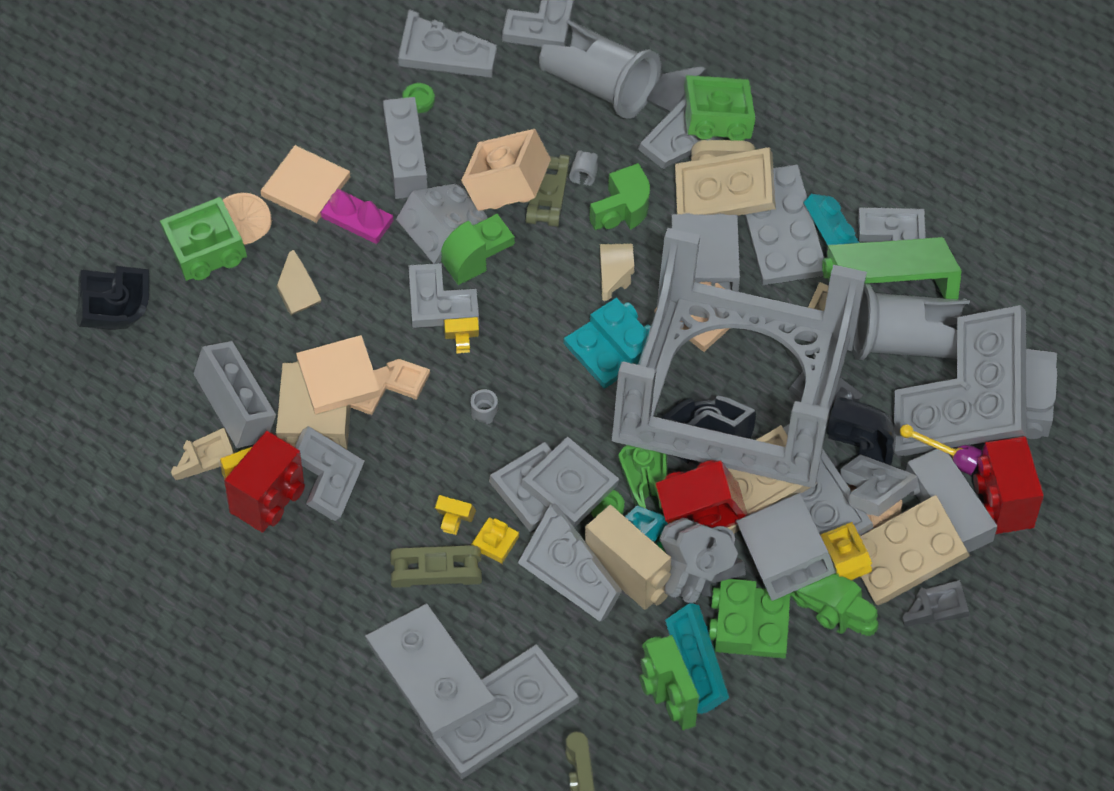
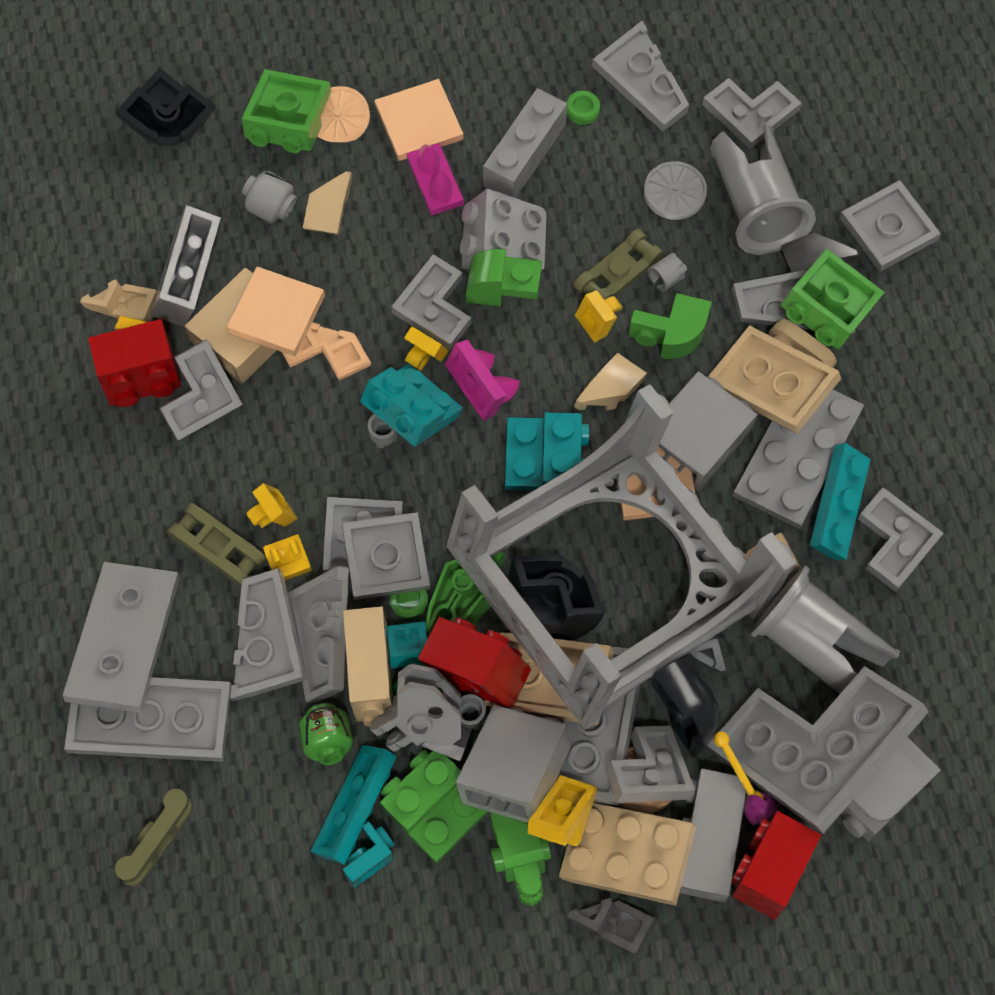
camera: 40 degrees right, 10 degrees up
(247, 307) = (269, 197): none -> light grey head
(490, 373) = (410, 403): none -> teal plate
(506, 170) = (585, 226): light nougat brick -> none
(519, 328) = (471, 372): none -> dark pink tile
(533, 598) = (268, 639): none -> light grey wing
(538, 110) = (675, 190): none -> light grey wheel
(563, 228) = (597, 314): none -> yellow tile
(633, 626) = (325, 734): none -> bright green head
(669, 680) = (304, 799): bright green plate -> none
(708, 37) = (889, 226): none -> light grey plate
(742, 677) = (366, 862): none -> teal bracket
(899, 262) = (859, 567): bright green panel -> none

